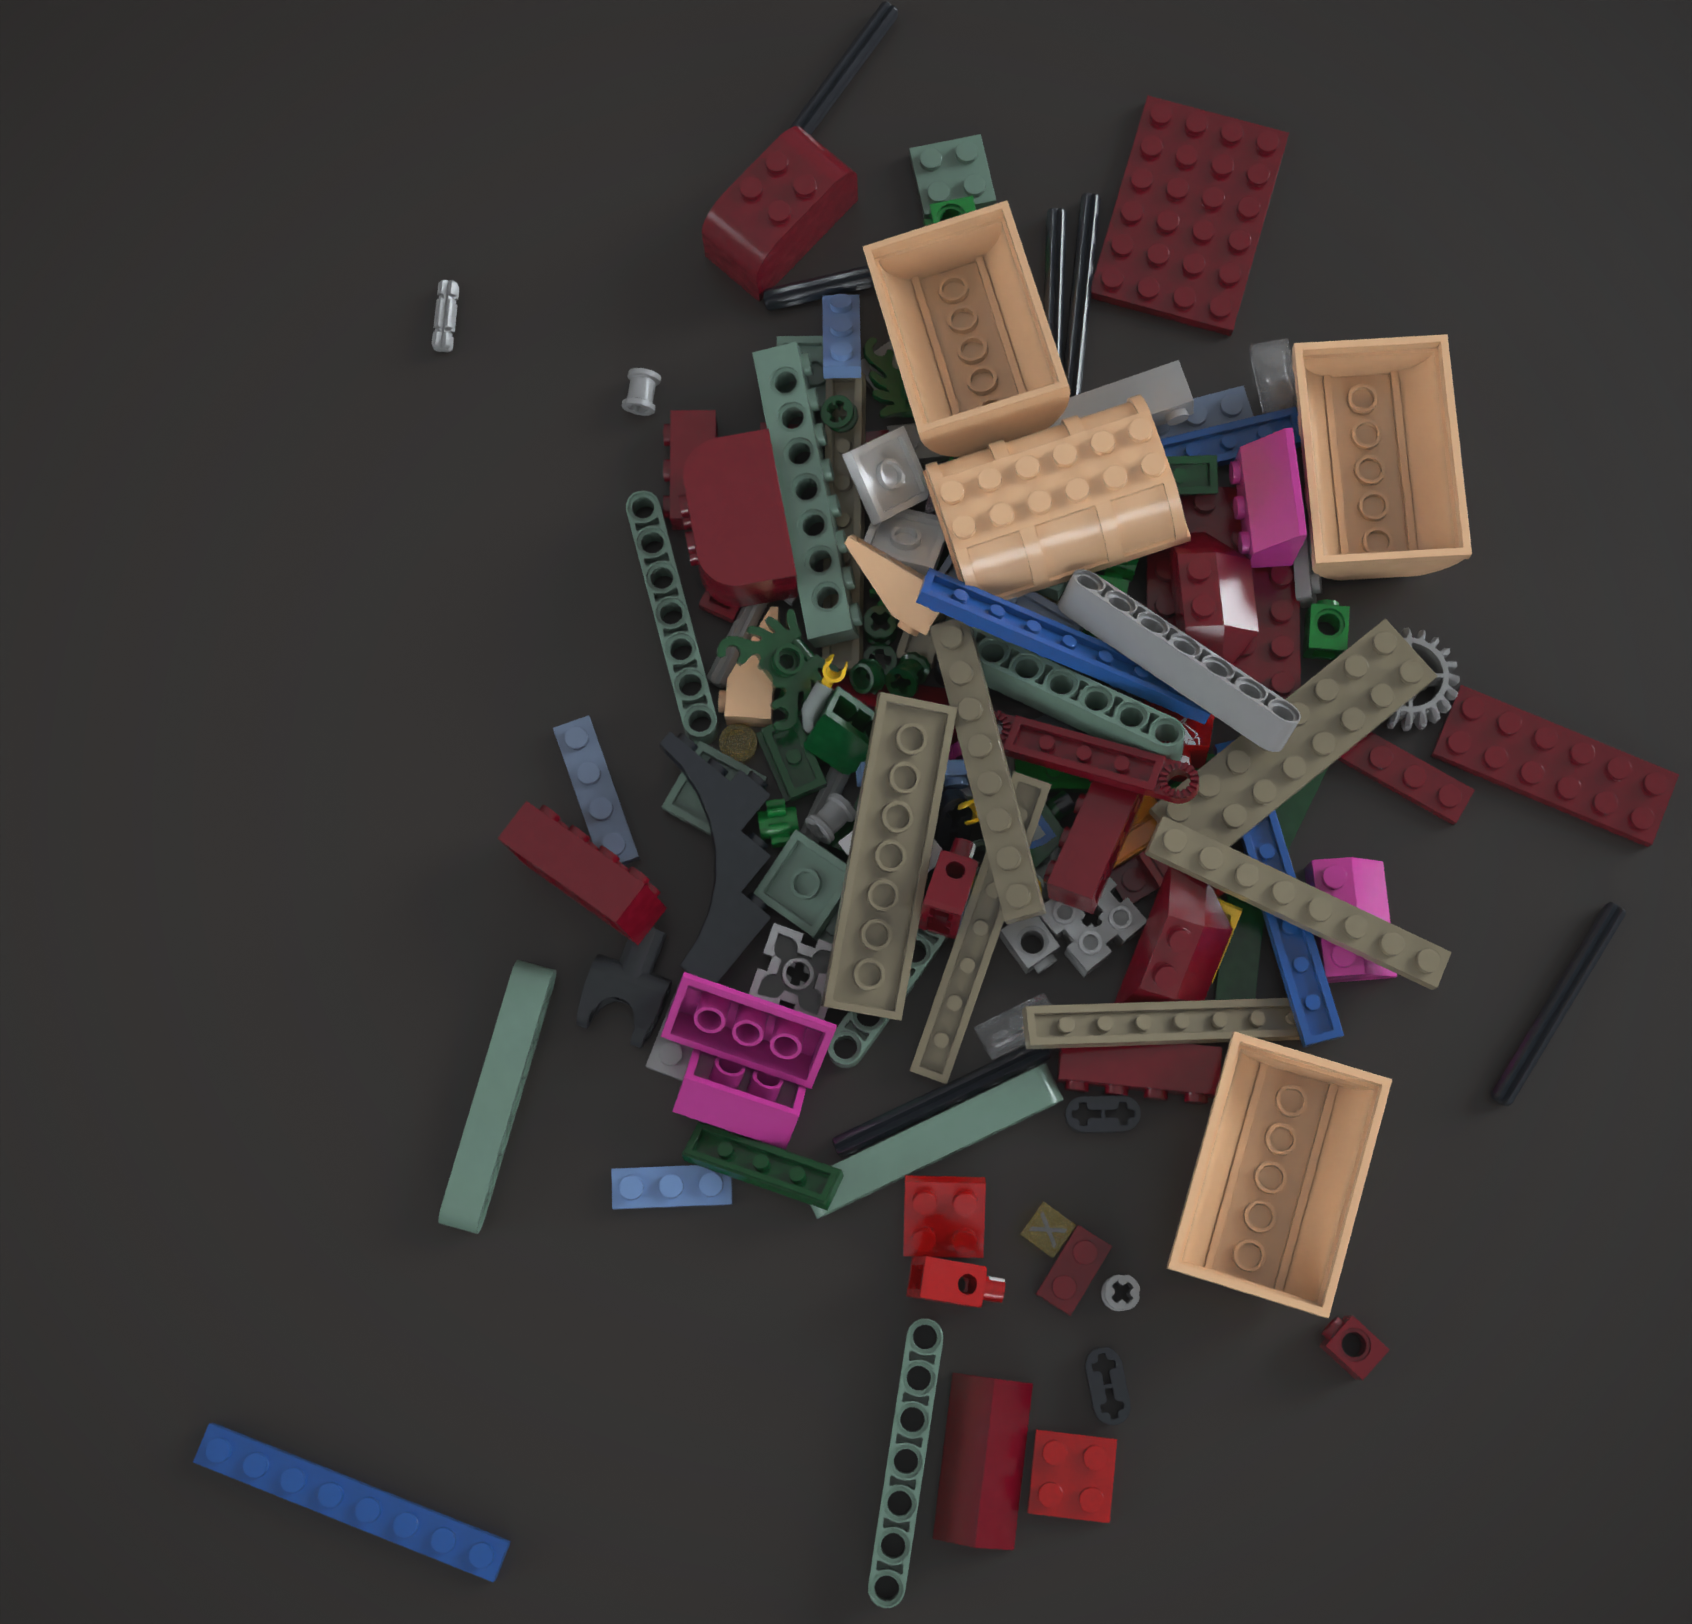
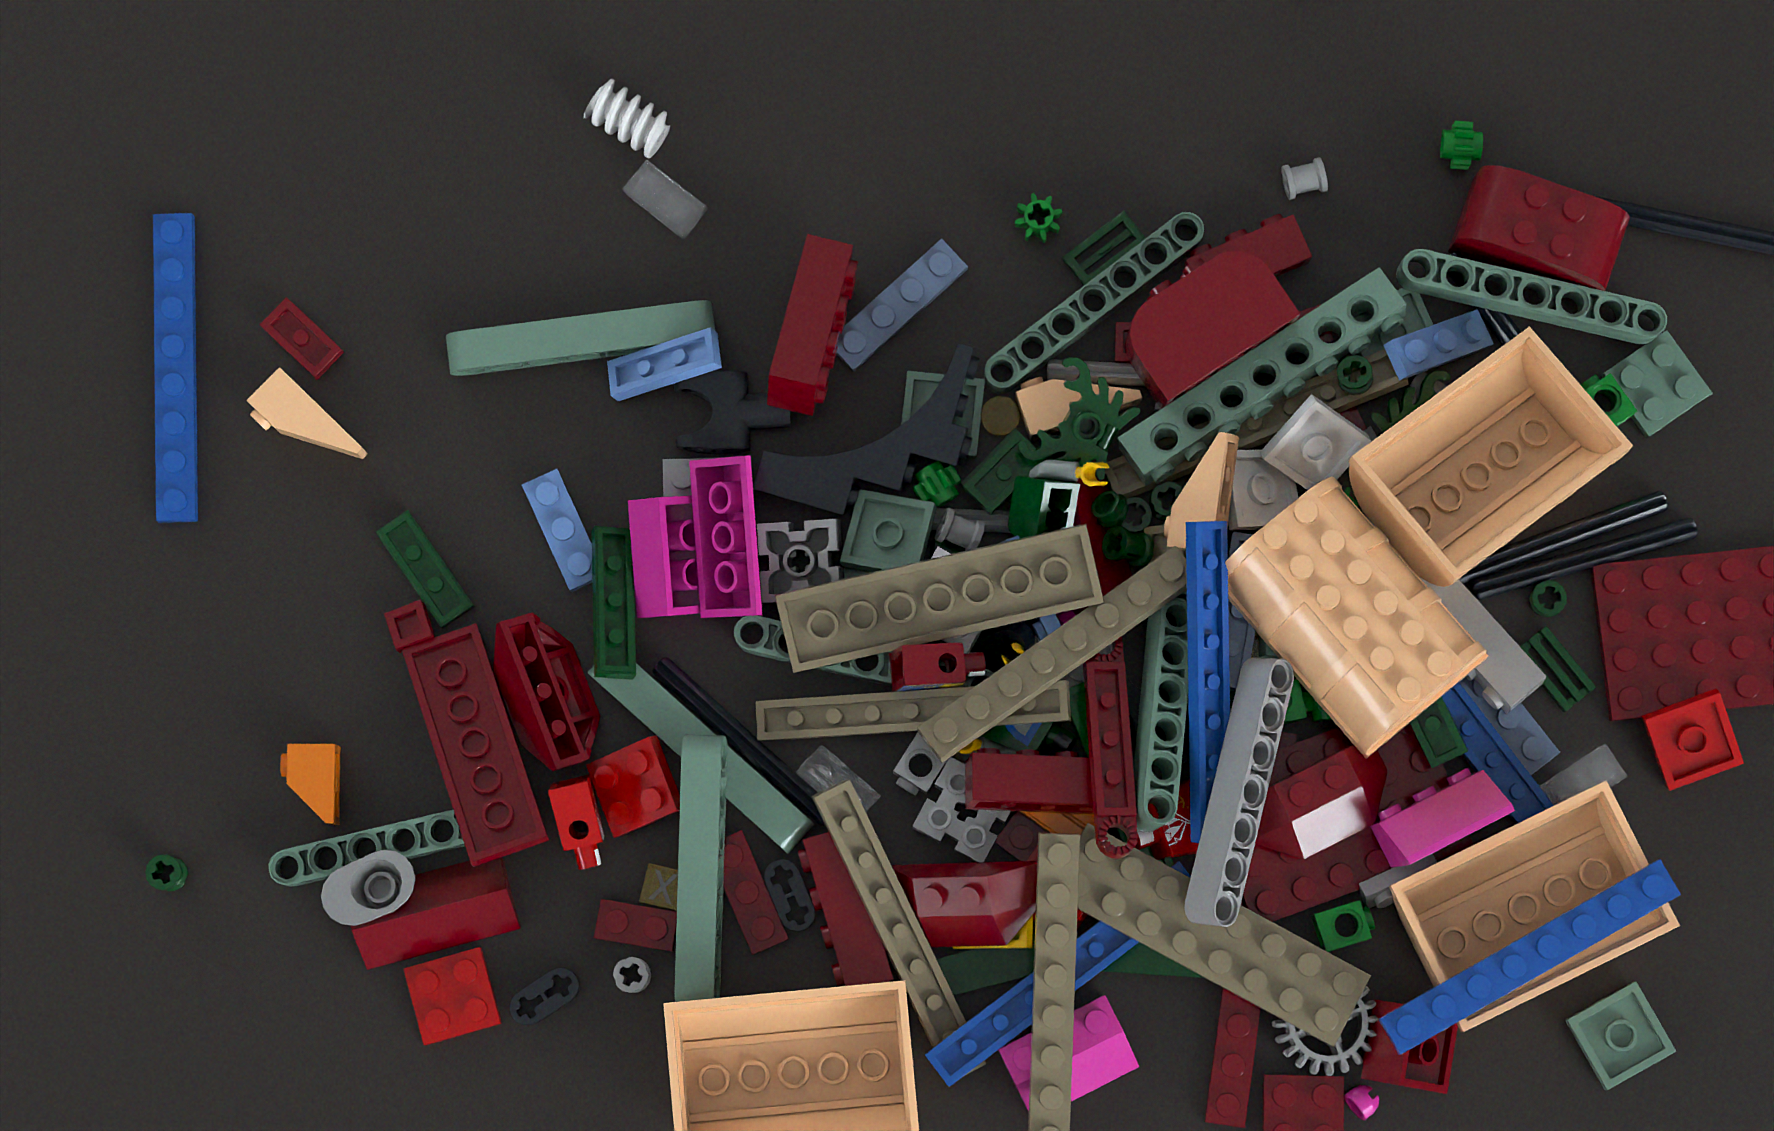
camera: 65 degrees right, 5 degrees up
(310, 965) = (628, 118): none -> white piece
(379, 1364) = (301, 338): none -> dark red plate
(402, 964) = (665, 199): none -> clear plate
(451, 1398) = (295, 414): none -> light nougat slope
(558, 1025) = (664, 364): none -> medium blue plate
(580, 641) = (1044, 209): none -> green gear
(635, 619) = (1079, 269): none -> dark green tile
(652, 1335) = (425, 569): none -> dark green tile
(672, 248) = (1461, 145): none -> green gear
(701, 1371) = (409, 625): none -> dark red plate
(809, 1525) = (315, 777): none -> orange slope
(820, 1266) = (545, 691): none -> dark red wedge
(838, 226) = (1549, 291): none -> sand green beam
(844, 1353) = (475, 745): none -> dark red plate
(942, 1513) = (368, 888): none -> light grey piece
(1049, 1185) = (701, 867): none -> sand green beam
(1084, 1153) = (750, 896): none -> dark red plate
(1114, 339) = (1555, 607): none -> dark green bush
(1197, 351) = (1567, 660): none -> dark green tile
(1278, 269) = (1692, 739): none -> red plate
(1427, 471) = (1529, 956): none -> blue plate
(1457, 615) = (1420, 1068): none -> dark red slope
(1489, 679) = (1360, 1101): none -> dark pink hinge
(1513, 436) = (1620, 1035): none -> sand green plate

